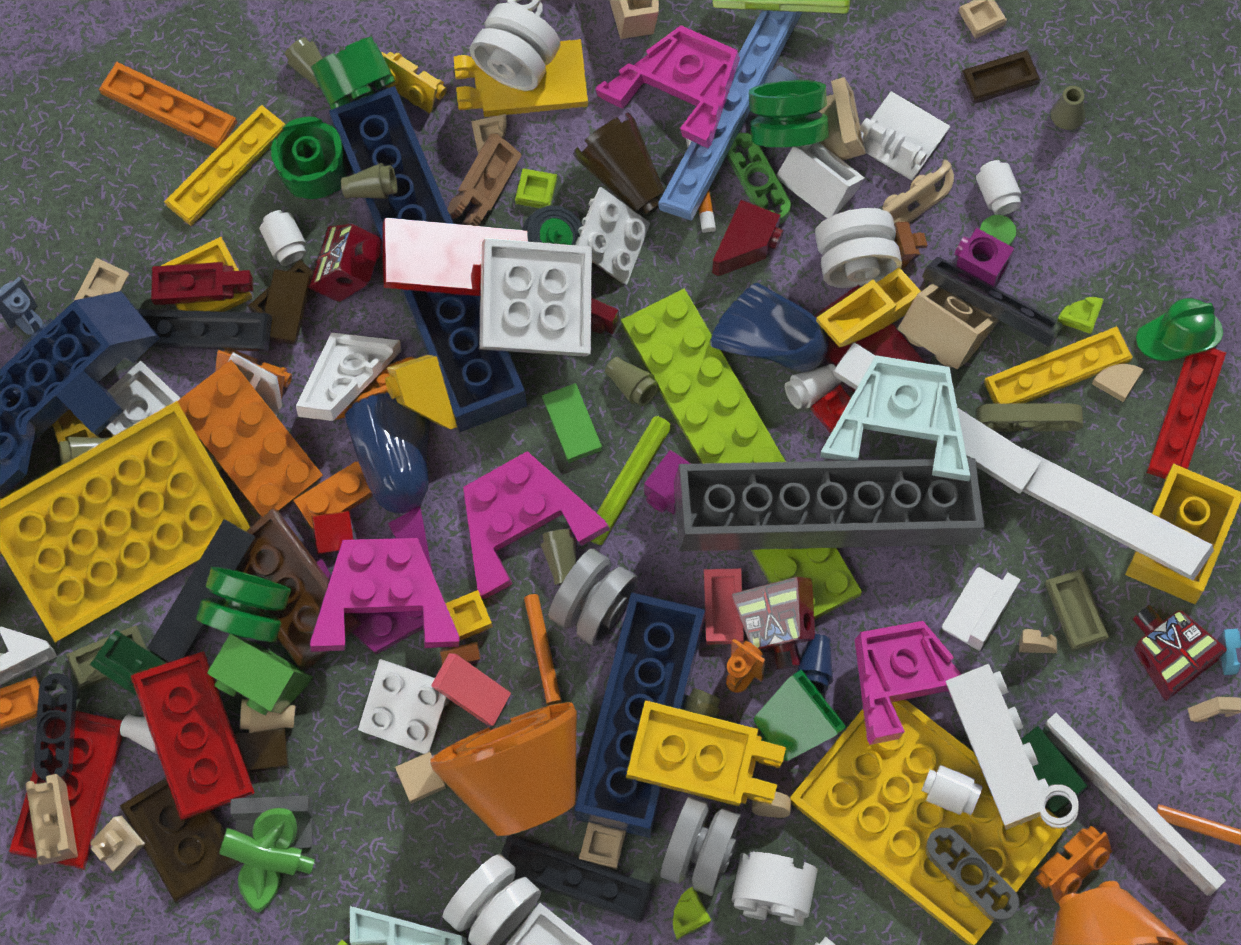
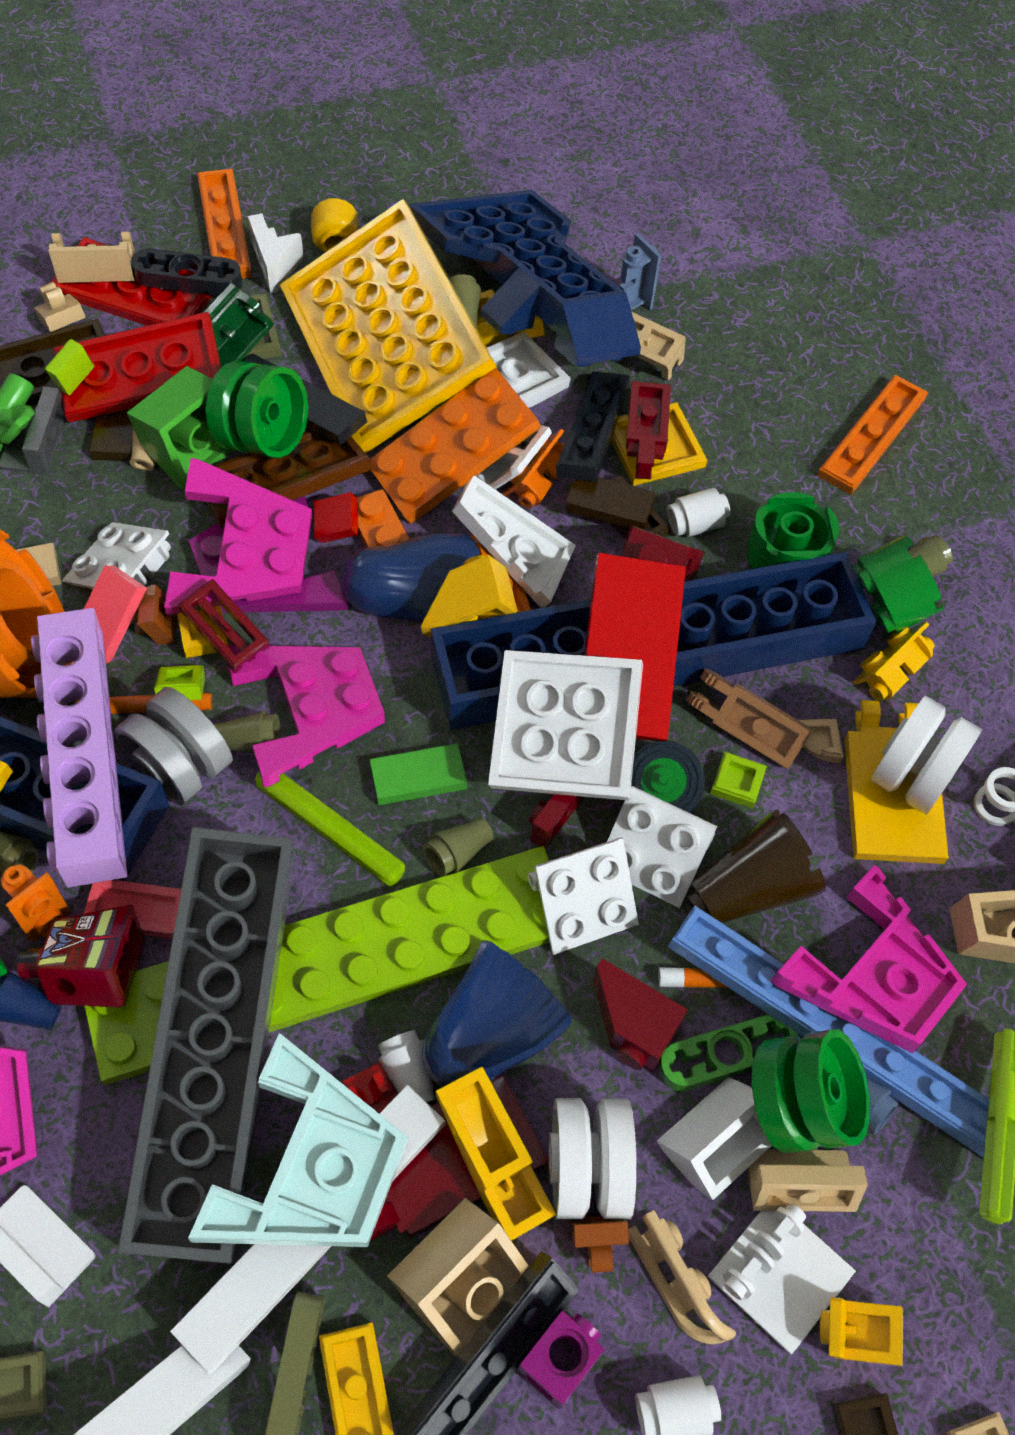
camera: 90 degrees right, 10 degrees down
(215, 785) = (69, 367): none -> lime tile
(225, 165) = (793, 472): yellow tile -> none
(373, 182) = (741, 574): olive cone -> none
(450, 611) = (247, 653): none -> dark red tile
(522, 621) = (184, 679): none -> lime tile
(594, 645) = (99, 851): none -> lavender brick
(657, 281) = (585, 895): none -> white hinge
(660, 485) = (315, 869): magenta brick -> none
(929, 82) = (863, 1332): none -> yellow bracket
(1000, 228) = (605, 1395): bright green tile -> none

